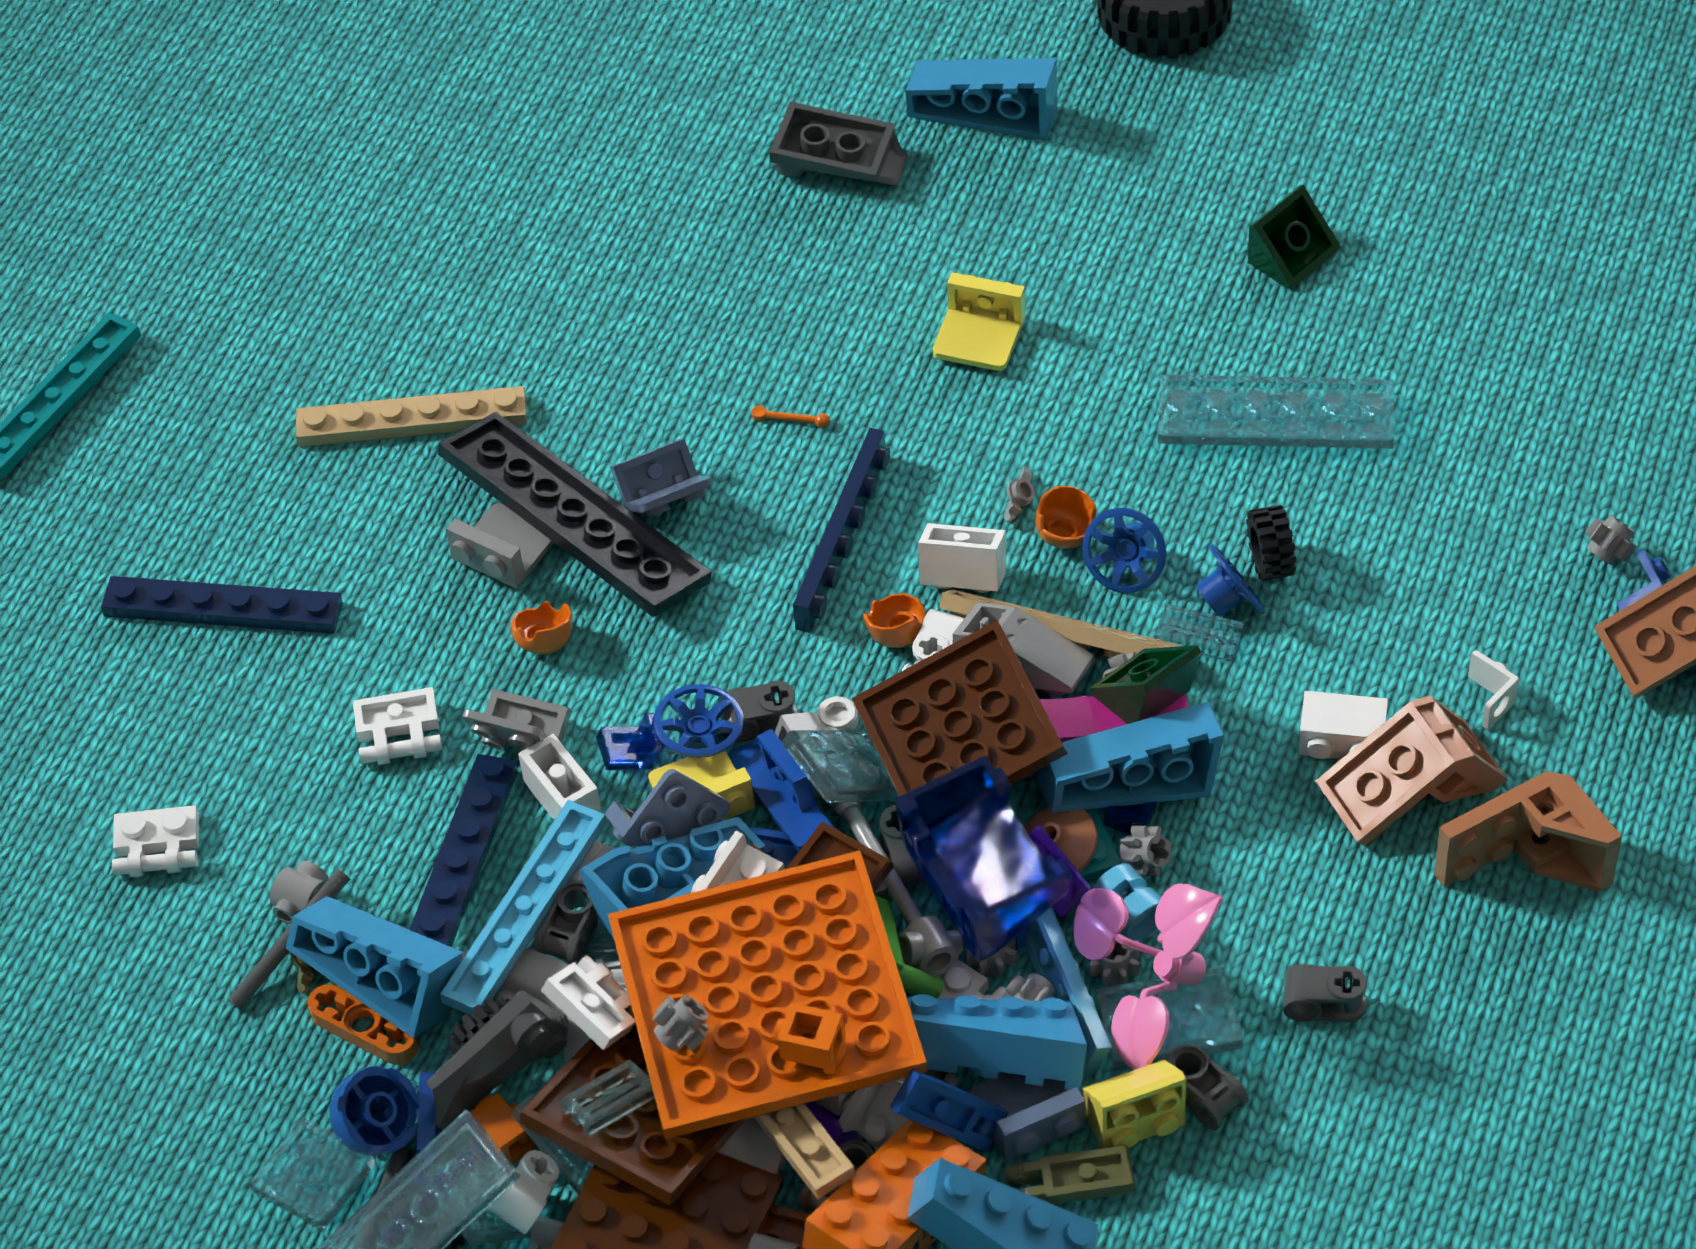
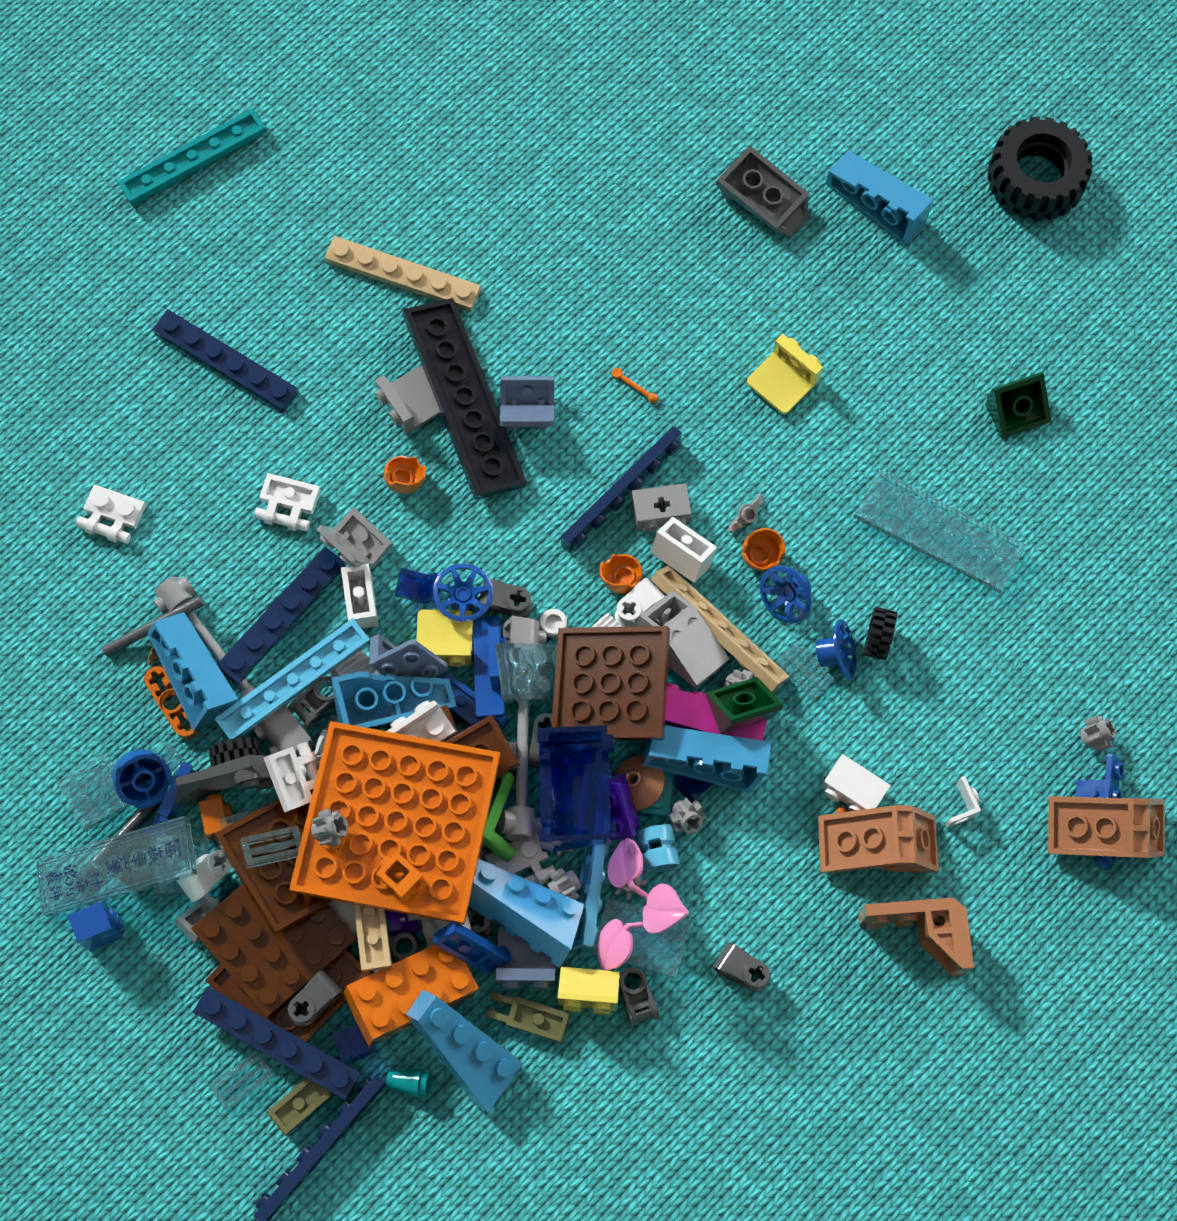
camera: 20 degrees right, 20 degrees up
(894, 528) = (673, 500): none -> light grey brick

